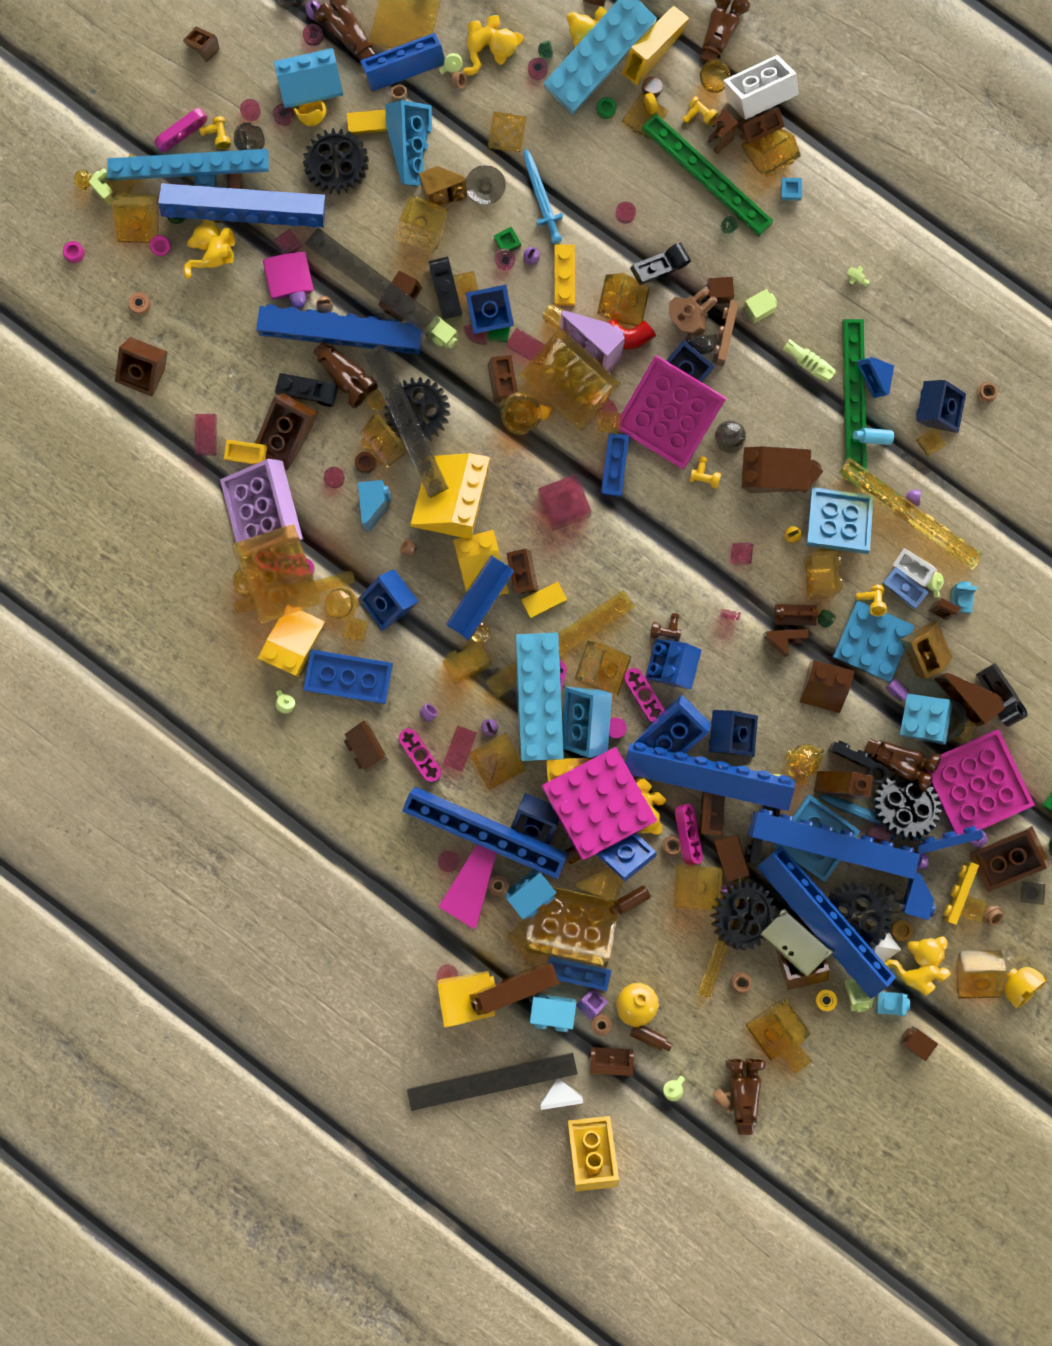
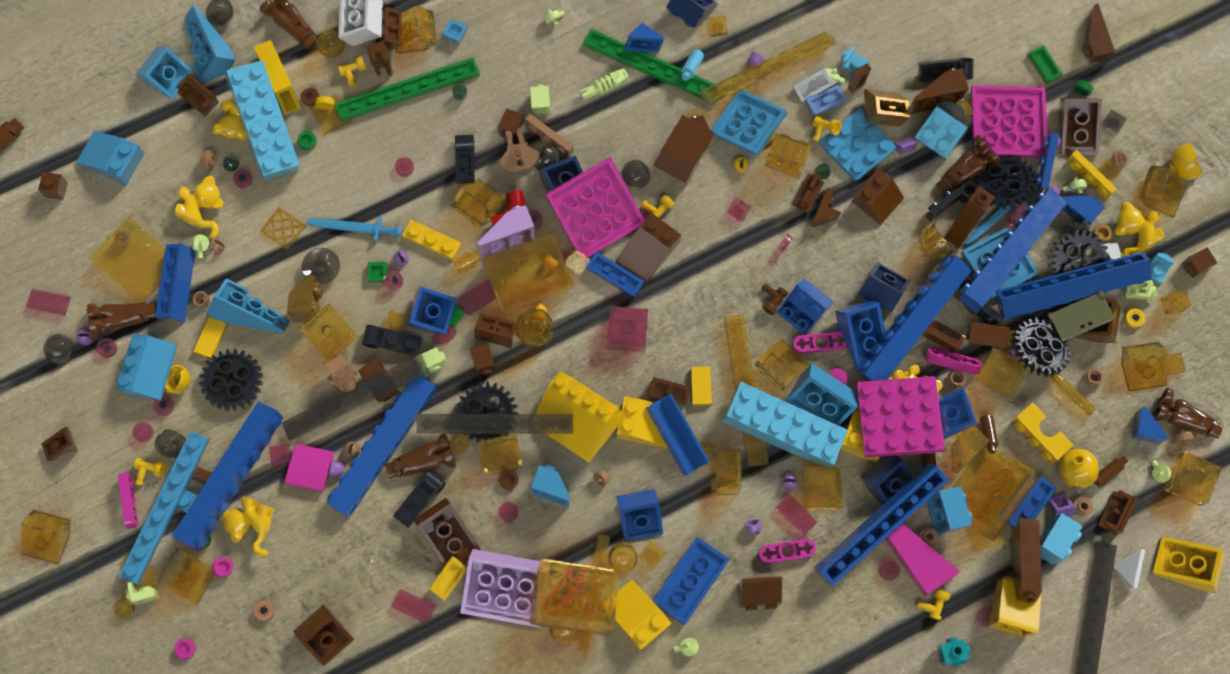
camera: 70 degrees left, 10 degrees down
(114, 75) = (44, 536): none -> clear yellow slope
(387, 257) = (341, 373): none -> medium nougat hinge
(395, 948) = (947, 654): none -> teal brick
(430, 922) = (935, 610): none -> yellow piece
(467, 381) = (482, 359): none -> reddish brown brick
(539, 25) = (207, 159): none -> medium nougat plate
(632, 361) = (537, 219): none -> clear pink tile
(658, 484) = (649, 248): none -> reddish brown slope
(660, 936) = (1029, 424): none -> yellow arch
(682, 1124) = (1193, 478): none -> clear yellow brick
(713, 1057) = (1147, 428): none -> blue slope
(863, 1034) = (1175, 302): none -> clear yellow brick
(940, 882) = (1076, 186): none -> yellowish green piece

